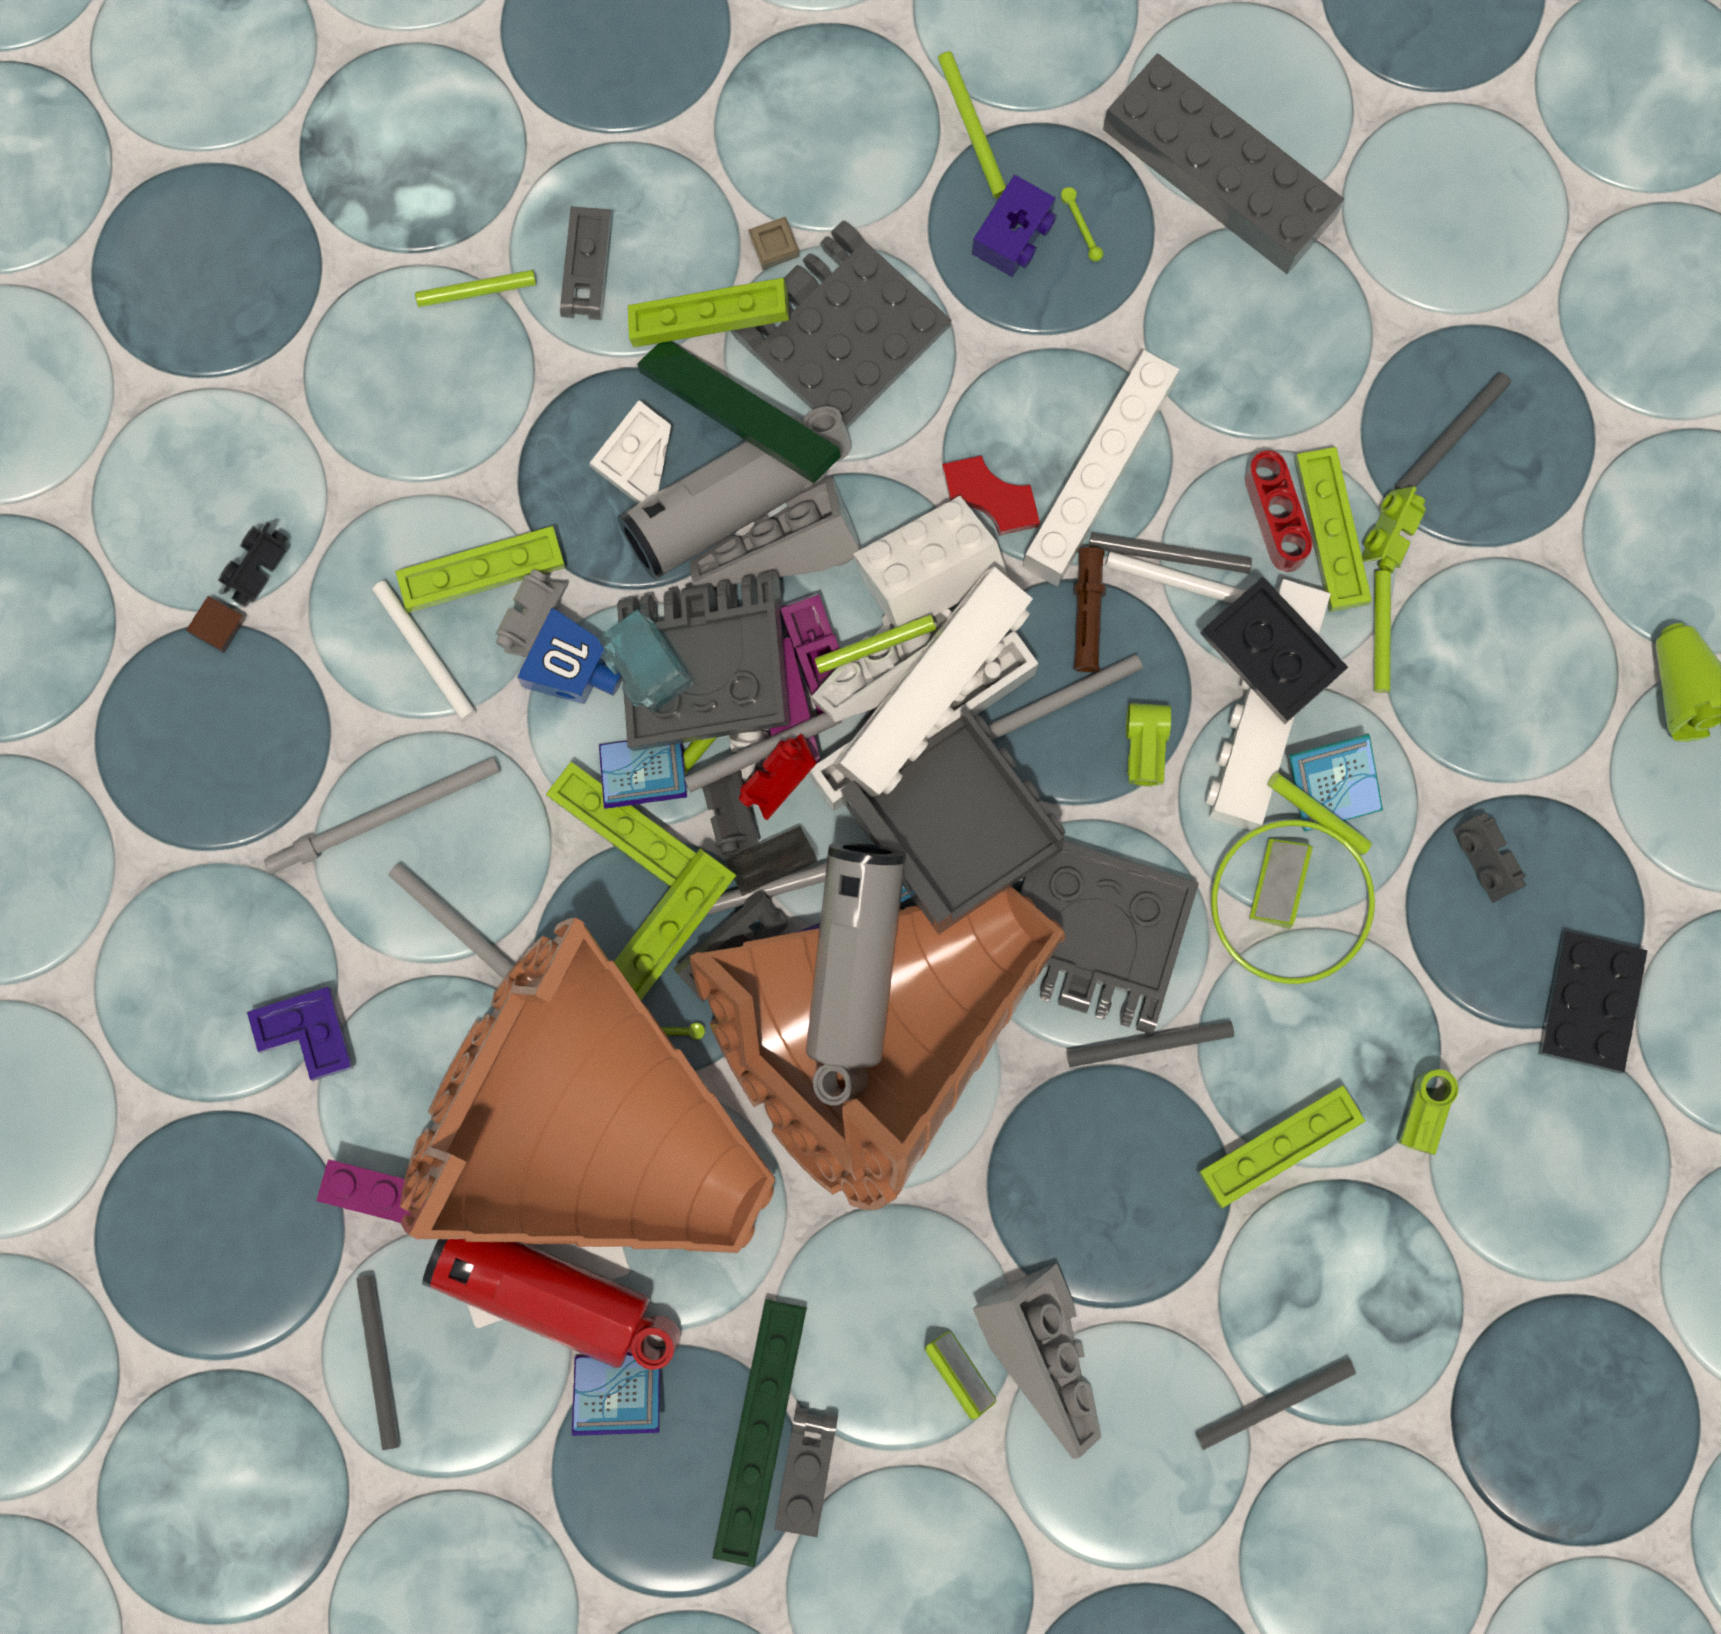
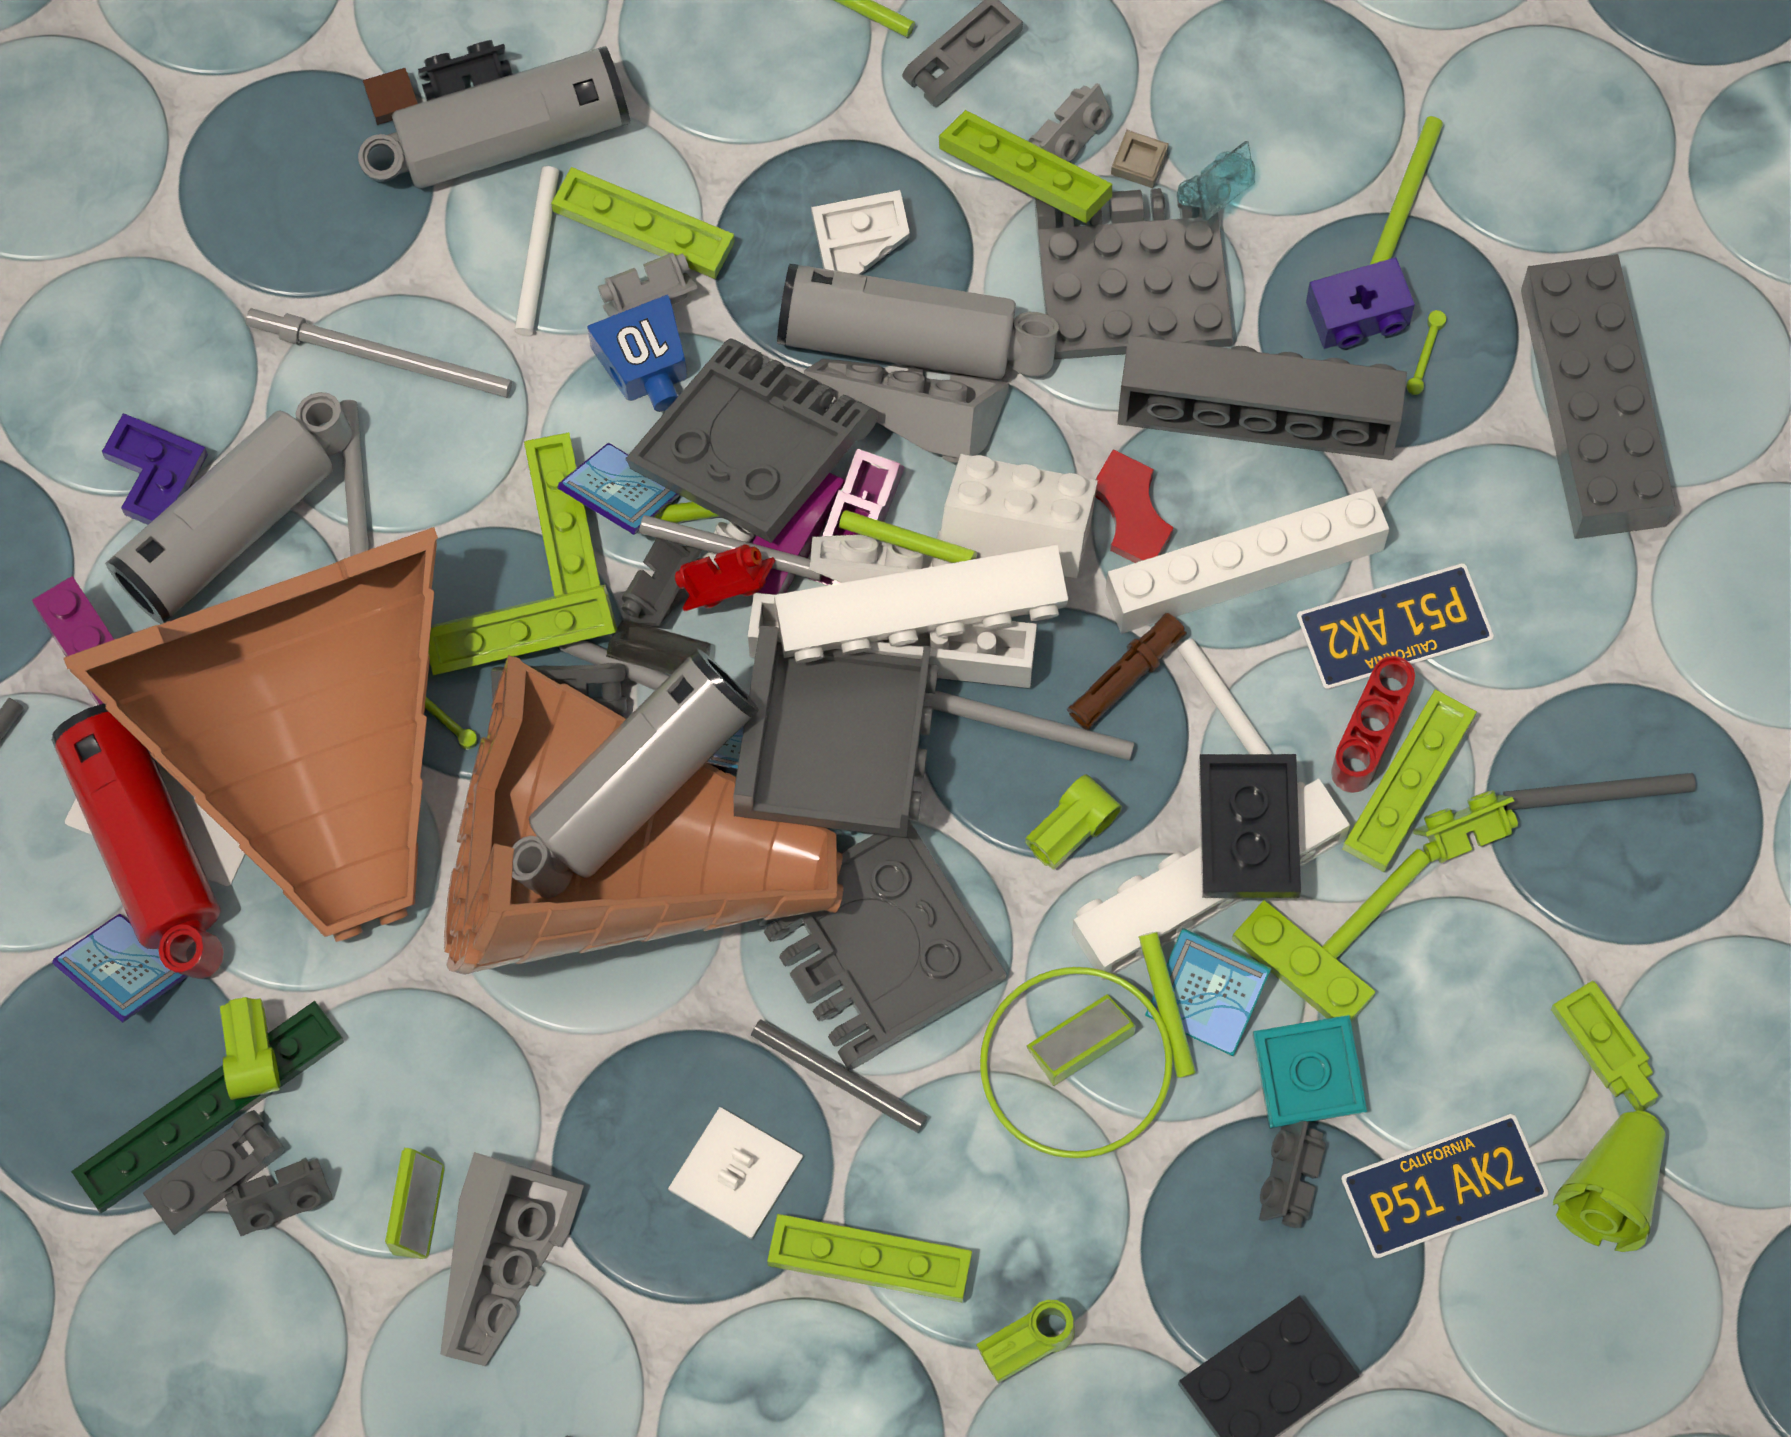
camera: 45 degrees right, 10 degrees down
(317, 578) = (502, 120): none -> light grey piece
(389, 1015) = (231, 506): none -> light grey piece
(644, 661) = (700, 395): clear light blue brick -> none
(707, 242) = (1080, 118): none -> light grey hinge
(739, 410) = (972, 260): dark green tile -> none
(766, 1380) = (250, 1061): none -> lime piece
(845, 216) = (1219, 181): none -> clear light blue hinge
(858, 1468) = (259, 1205): none -> dark grey hinge
(1014, 345) = (1261, 397): none -> dark grey brick
(1142, 1166) = (735, 1173): none -> white piece
(1171, 553) = (1246, 685): dark grey bar -> none
(1226, 431) = (1402, 619): none -> dark blue sticker
(1374, 711) = (1302, 964): none -> lime plate
(1442, 779) = (1309, 1071): none -> teal tile
(1584, 779) = (1444, 1186): none -> dark blue sticker
(1606, 600) = (1607, 1044): none -> lime hinge

